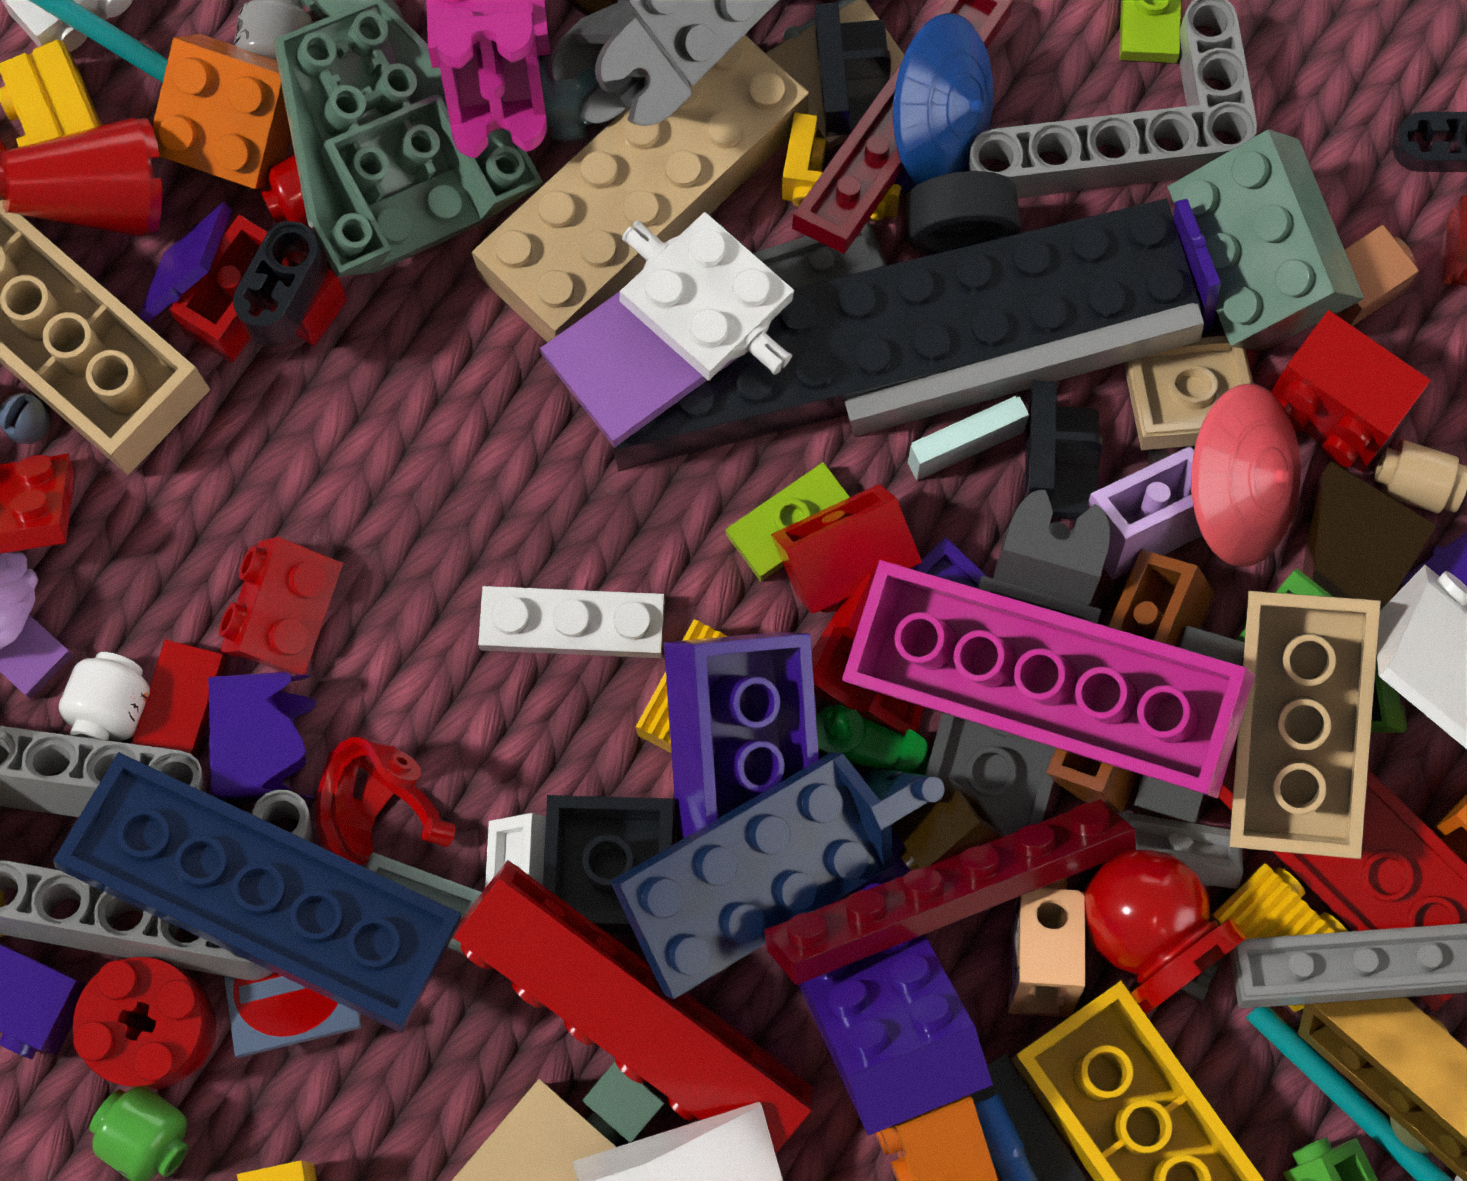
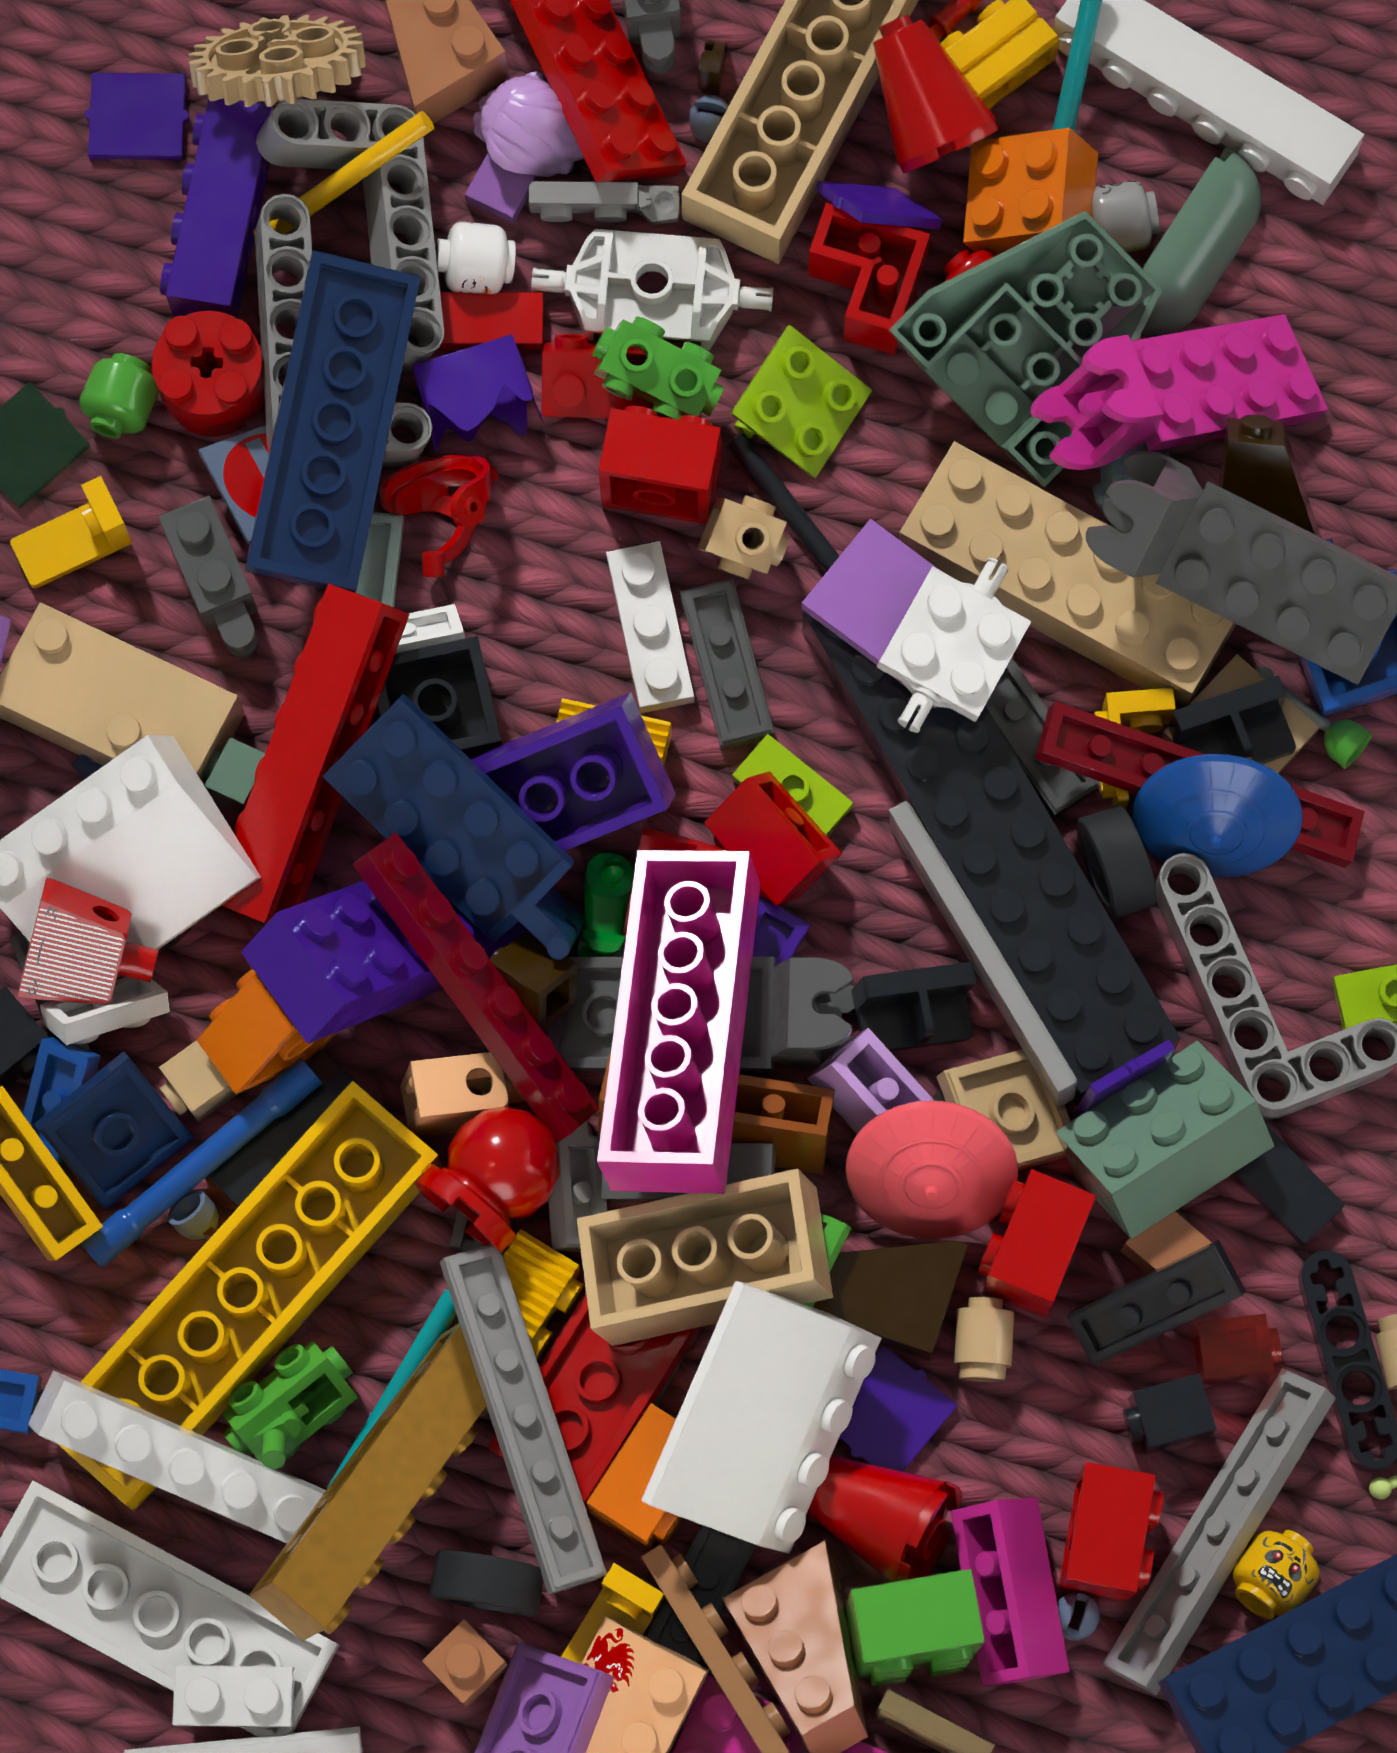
camera: 75 degrees right, 0 degrees up
(85, 543) = (606, 200): none -> light grey hinge
(196, 570) = (689, 308): none -> white plate
(294, 287) = (861, 264): black beam -> none
(318, 515) = (670, 379): none -> bright green brick
(372, 404) = (800, 402): none -> lime hinge
(382, 1077) = (212, 574): none -> dark grey brick
(405, 555) = (660, 464): none -> red brick
(475, 450) = (784, 501): none -> black bar
(507, 495) = (725, 533): none -> tan brick
(634, 554) = (726, 664): none -> dark grey tile
(967, 437) = (907, 920): light aqua tile -> none
(1340, 145) = (1289, 1190): none -> black tile
(1429, 292) = (1156, 1303): none -> black tile

